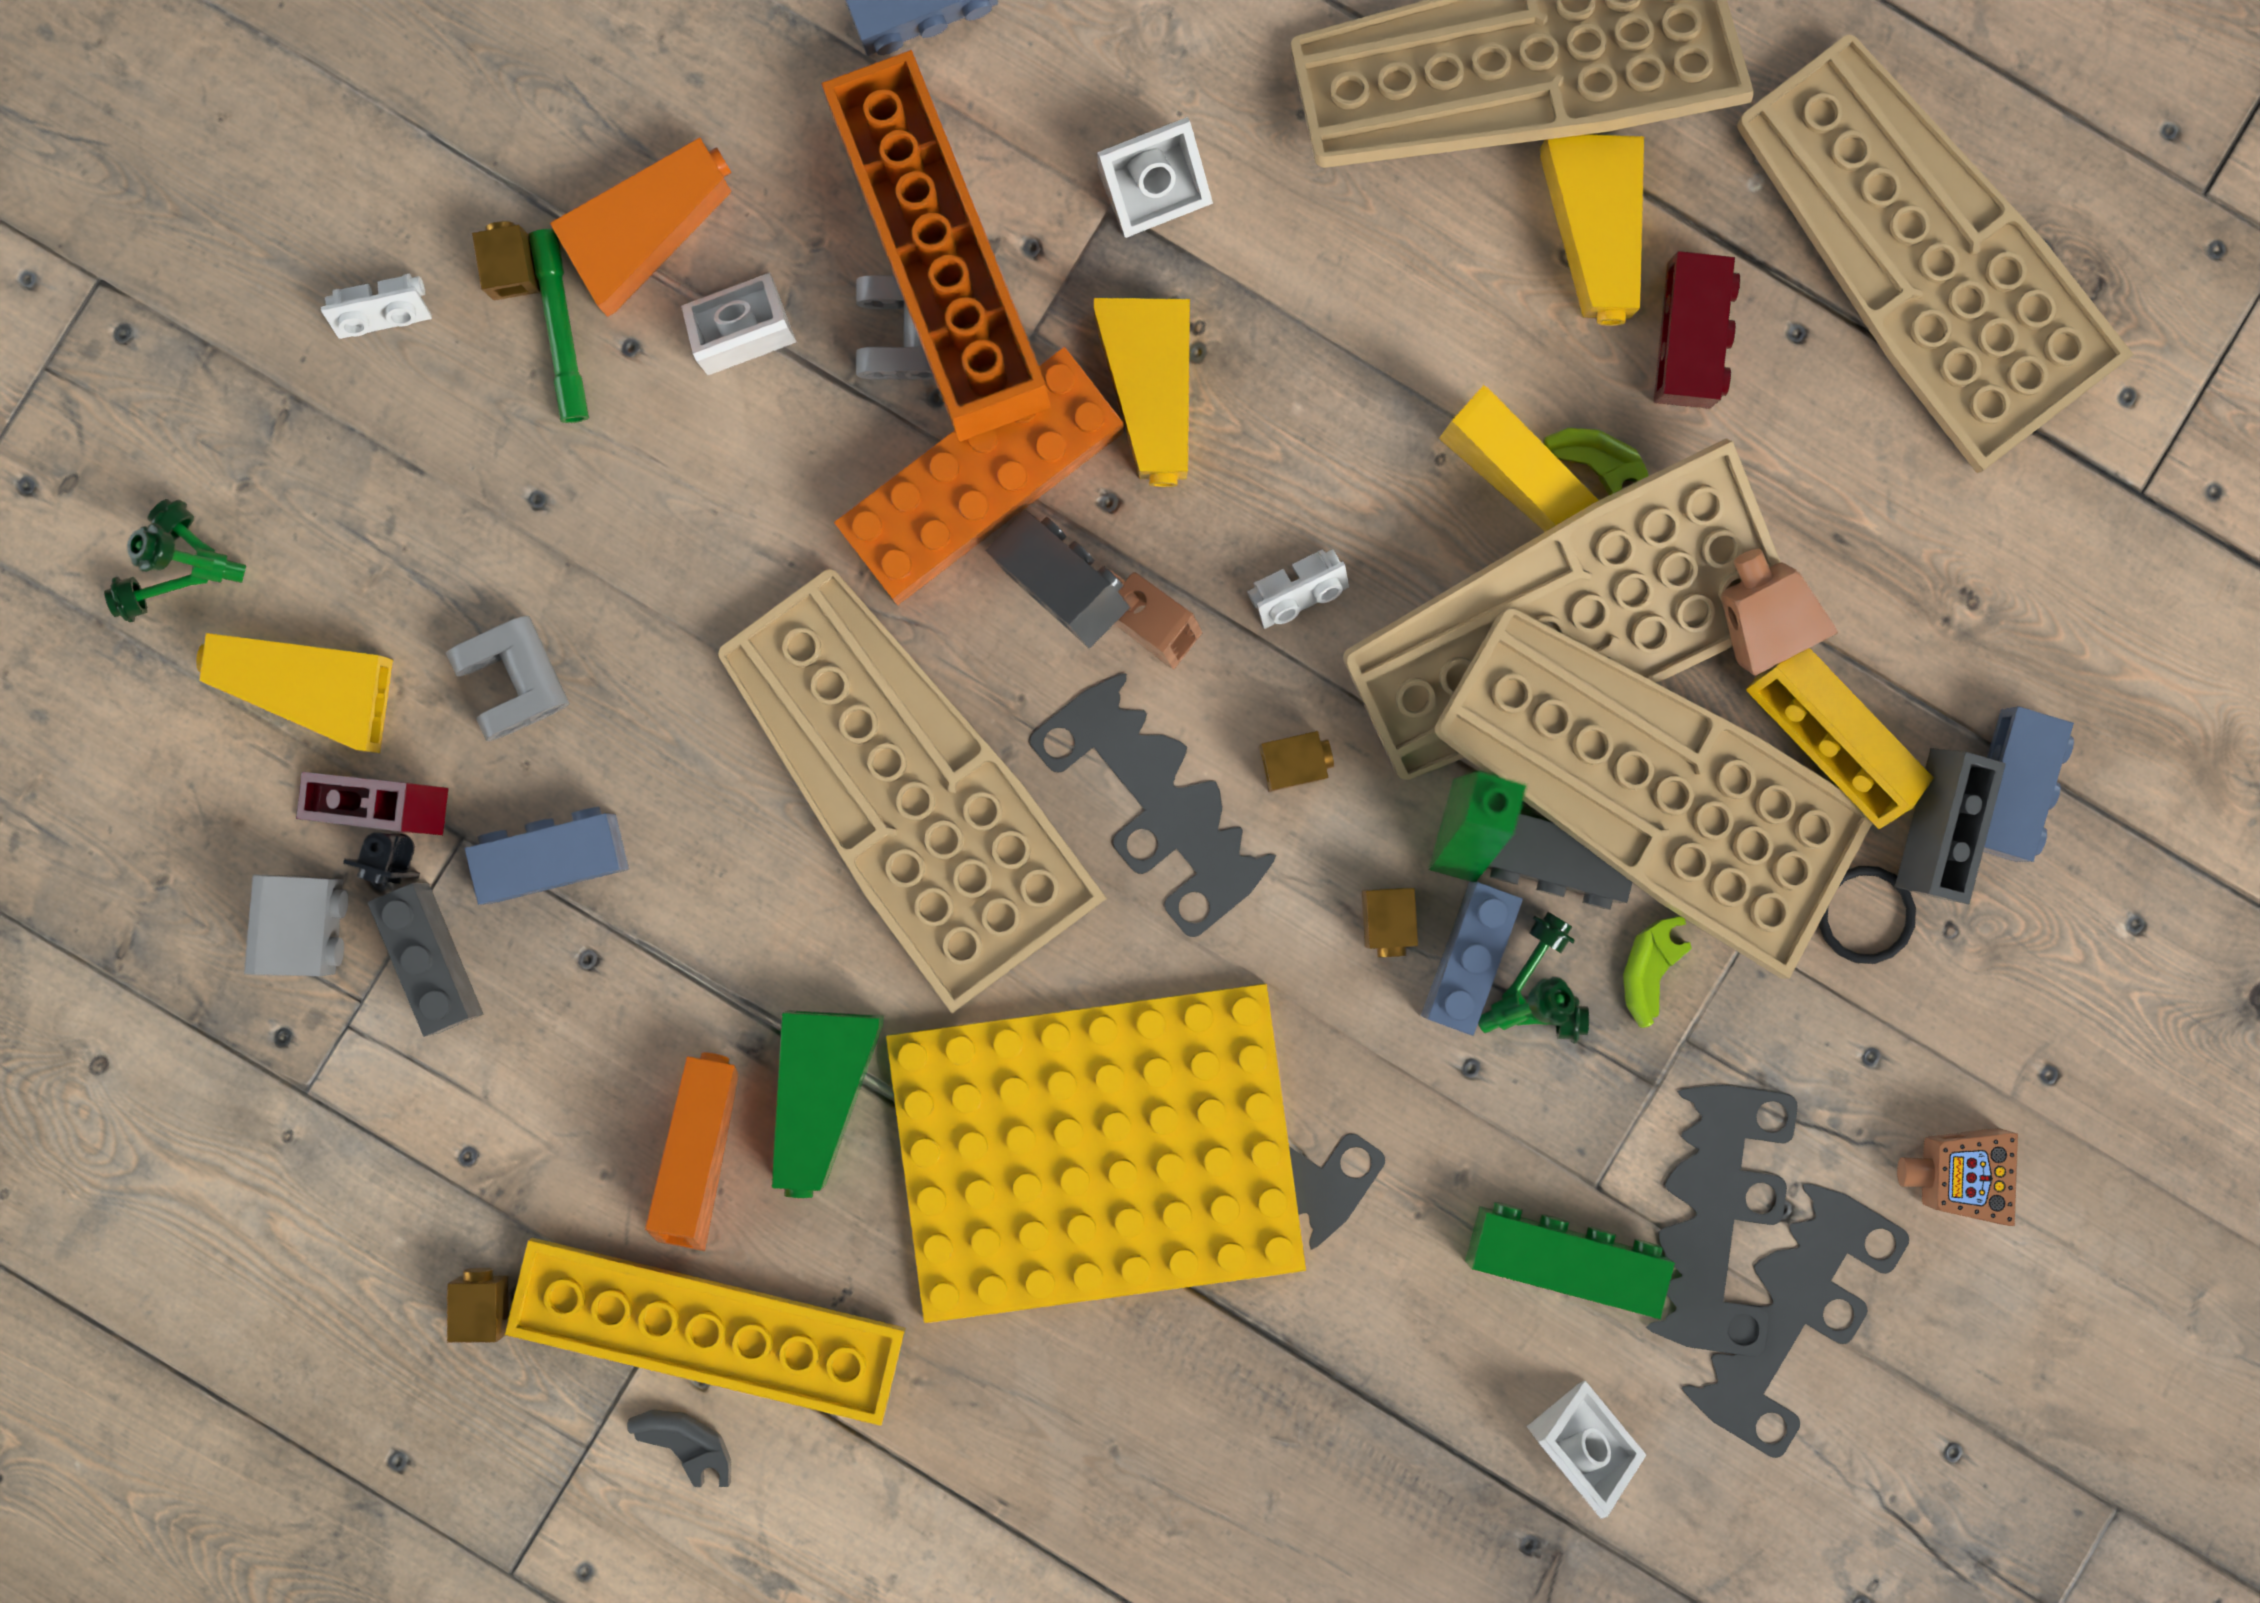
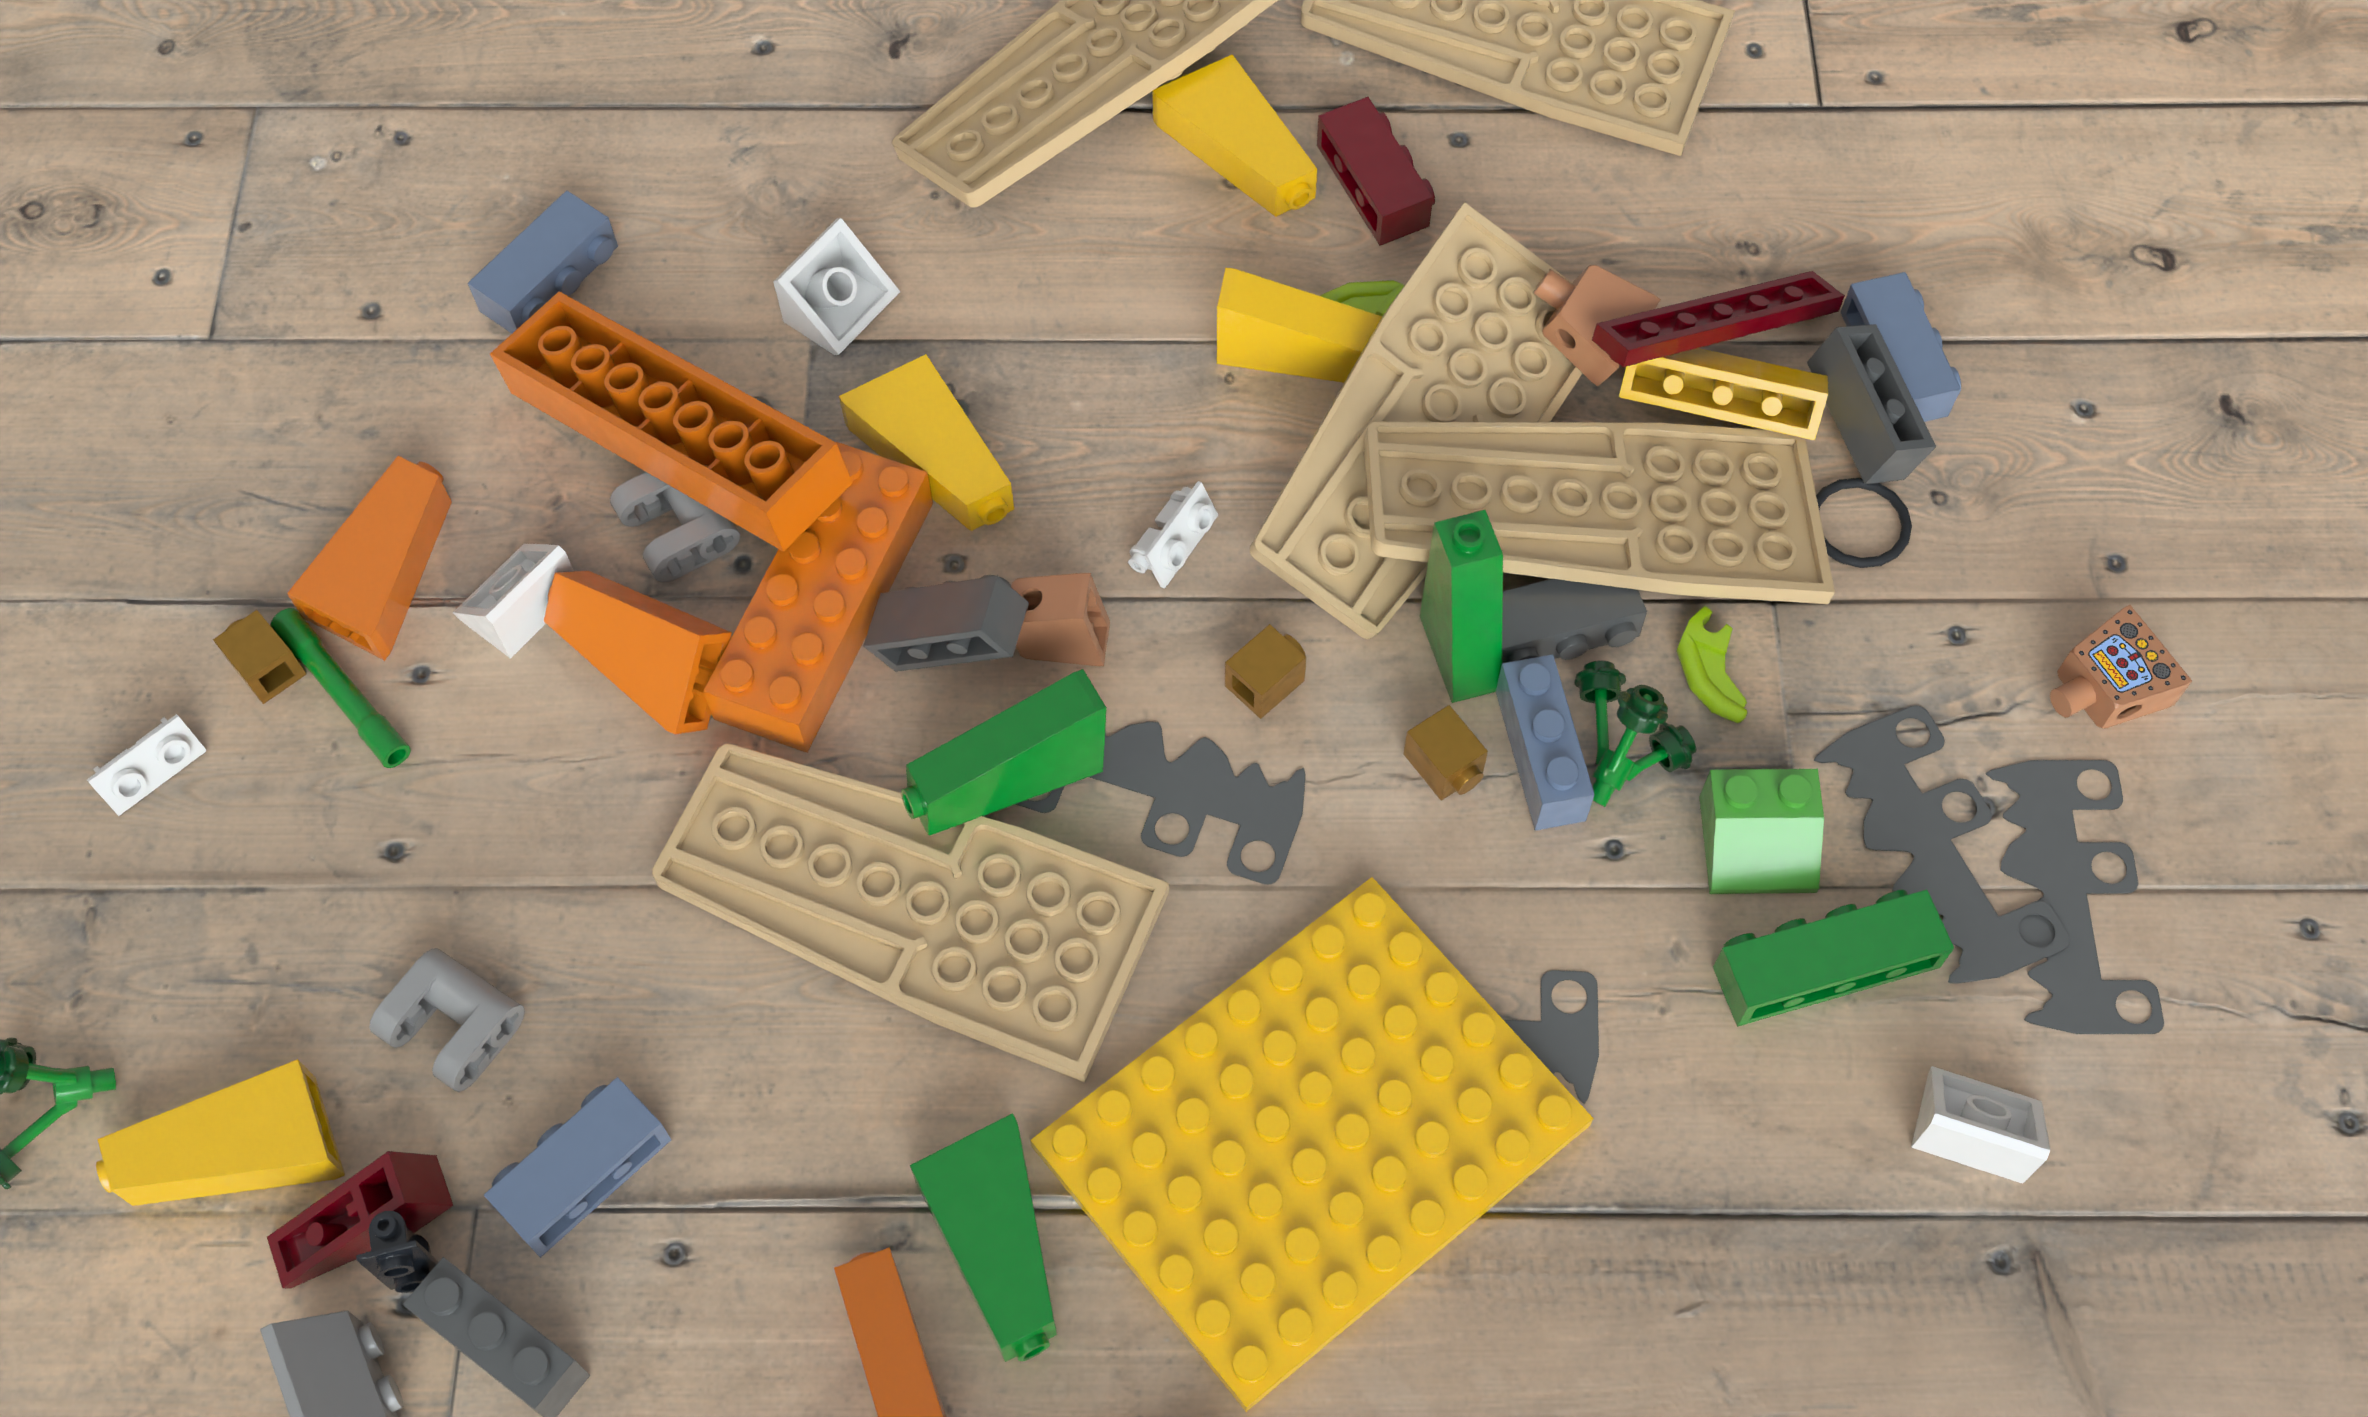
camera: 25 degrees left, 25 degrees down
(808, 439) = (639, 645): none -> orange slope
(1039, 727) = (1010, 757): none -> green slope
(1589, 1132) = (1762, 830): none -> bright green slope
(1876, 676) = (1716, 318): none -> dark red plate

